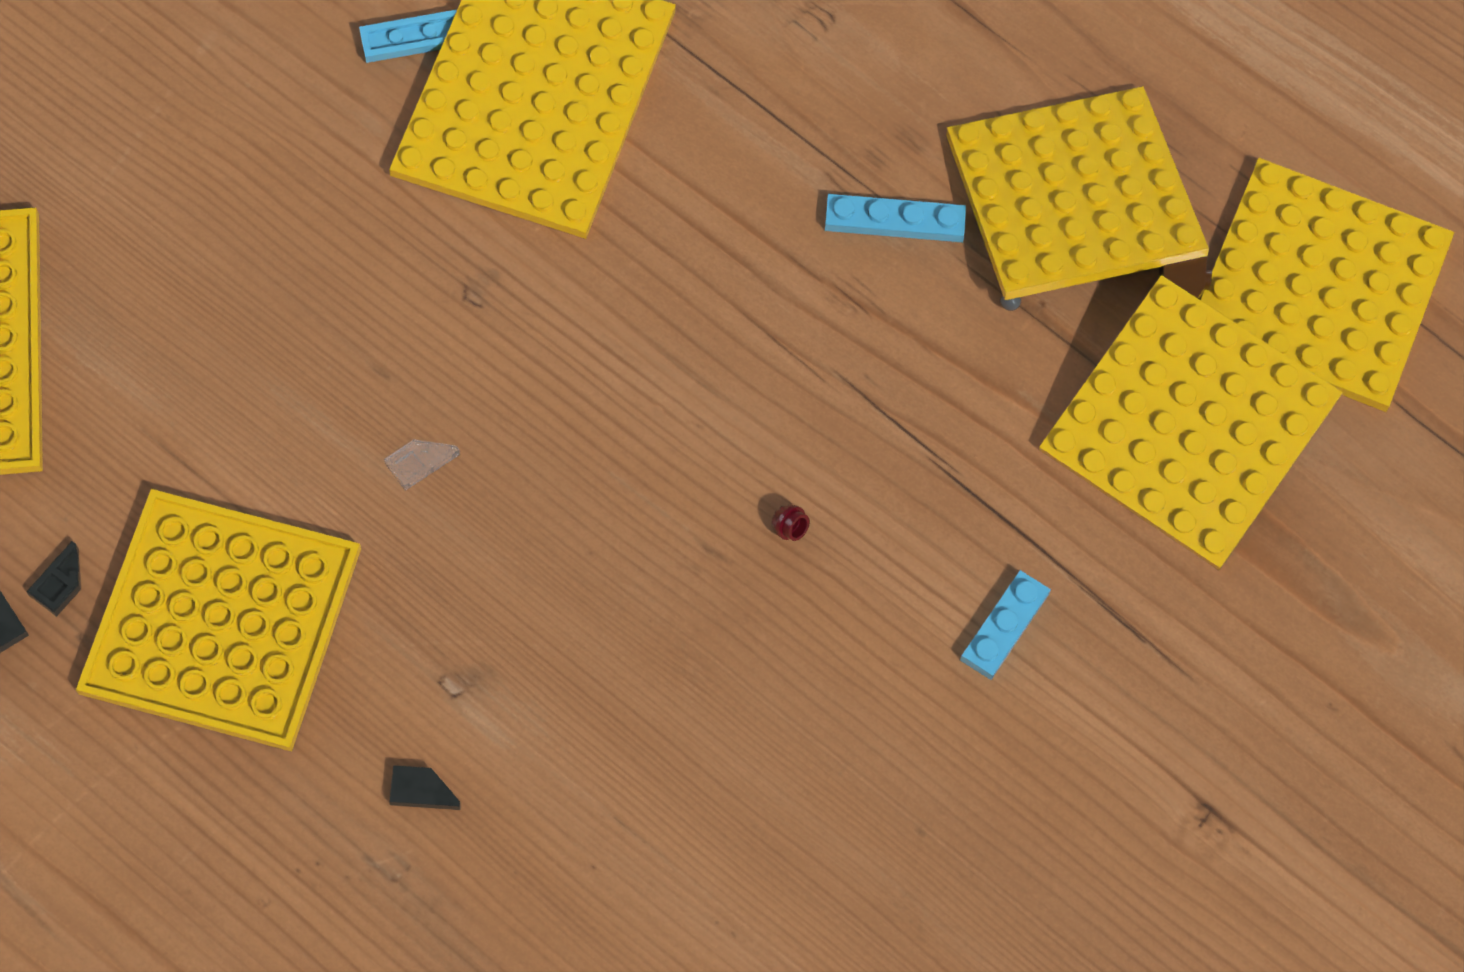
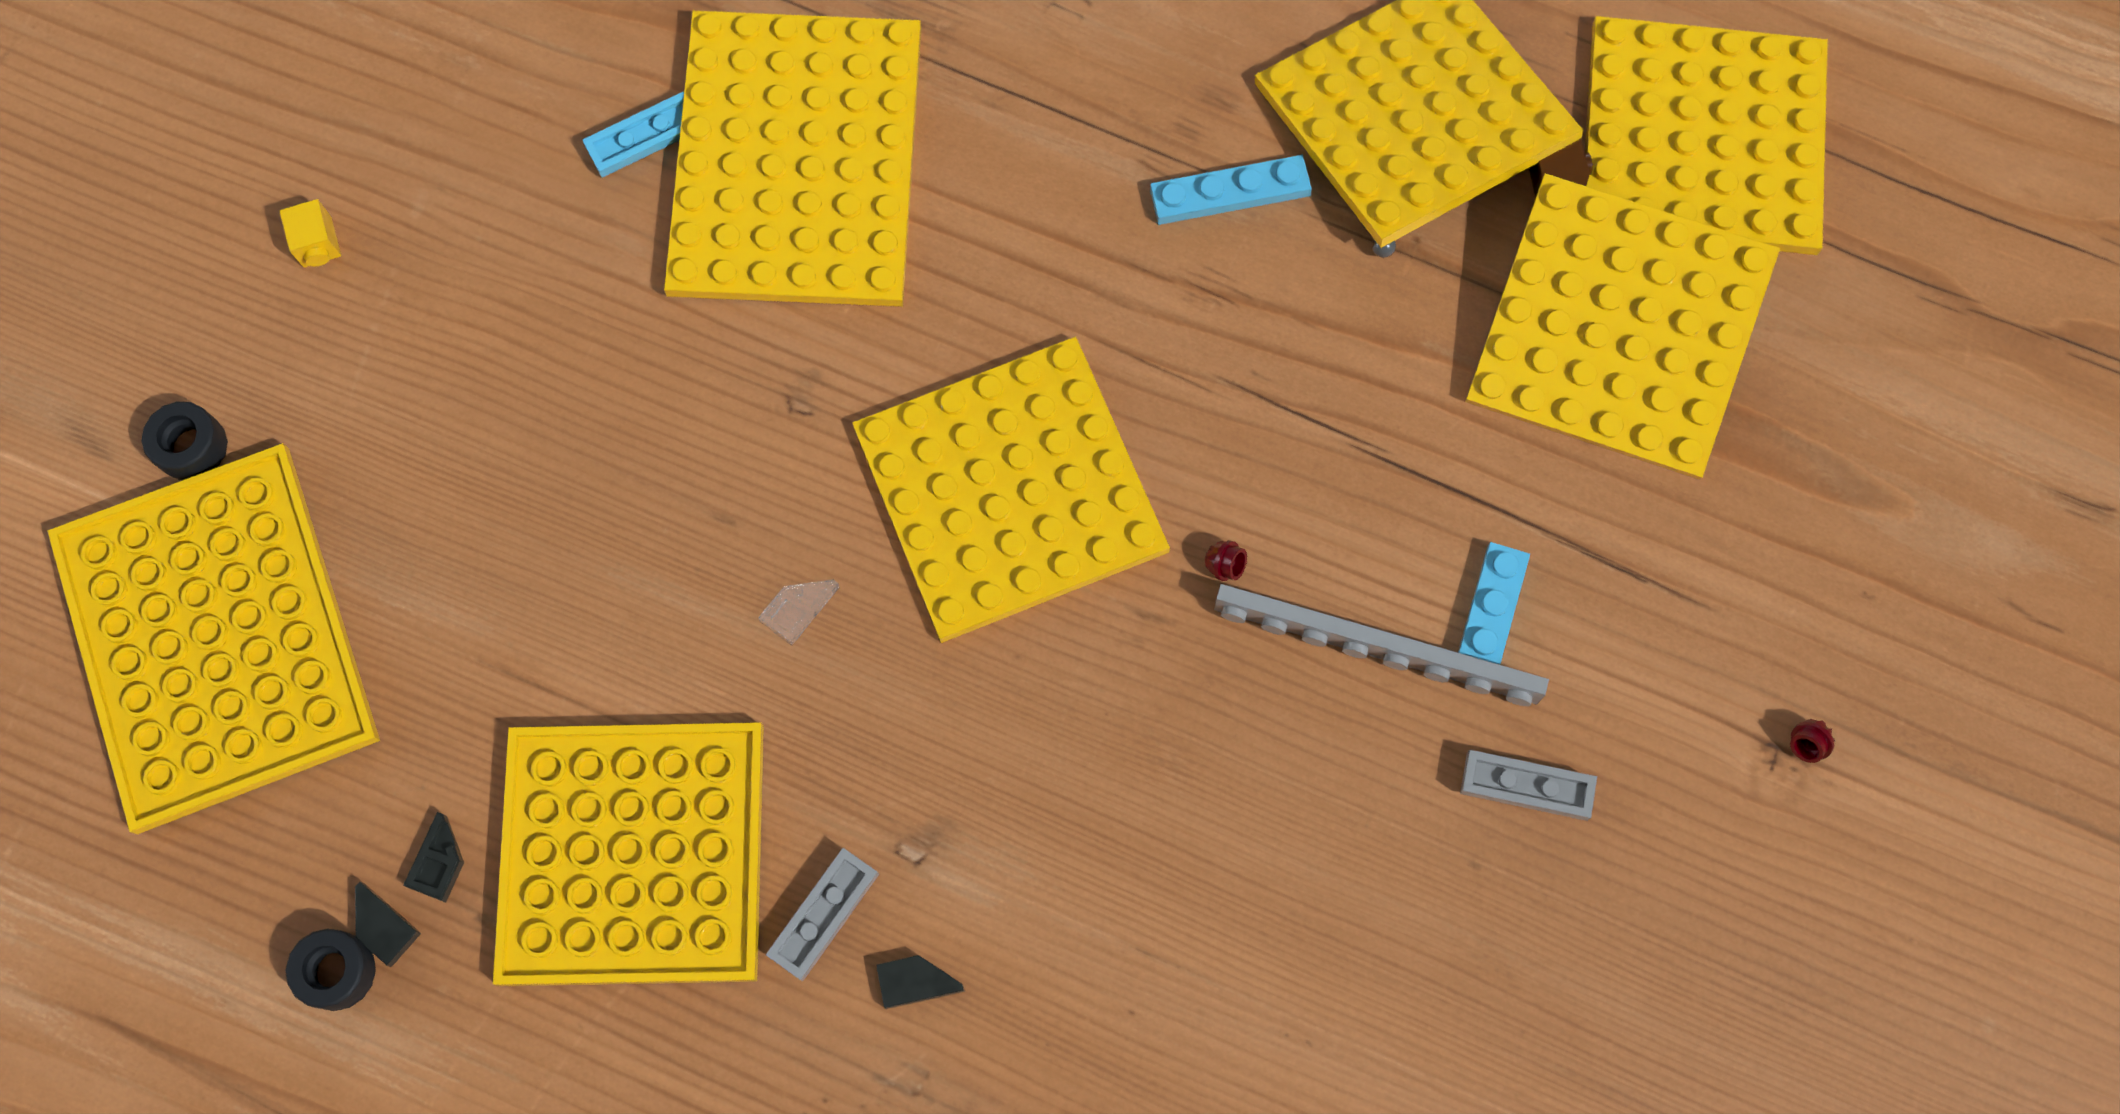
camera: 10 degrees left, 5 degrees up
(110, 42) = (310, 233): none -> yellow brick
(362, 712) = (822, 914): none -> light grey plate
(628, 413) = (1010, 489): none -> yellow plate
(908, 635) = (1394, 650): none -> light grey plate
(985, 777) = (1528, 785): none -> light grey plate
(1239, 809) = (1812, 741): none -> dark red plate

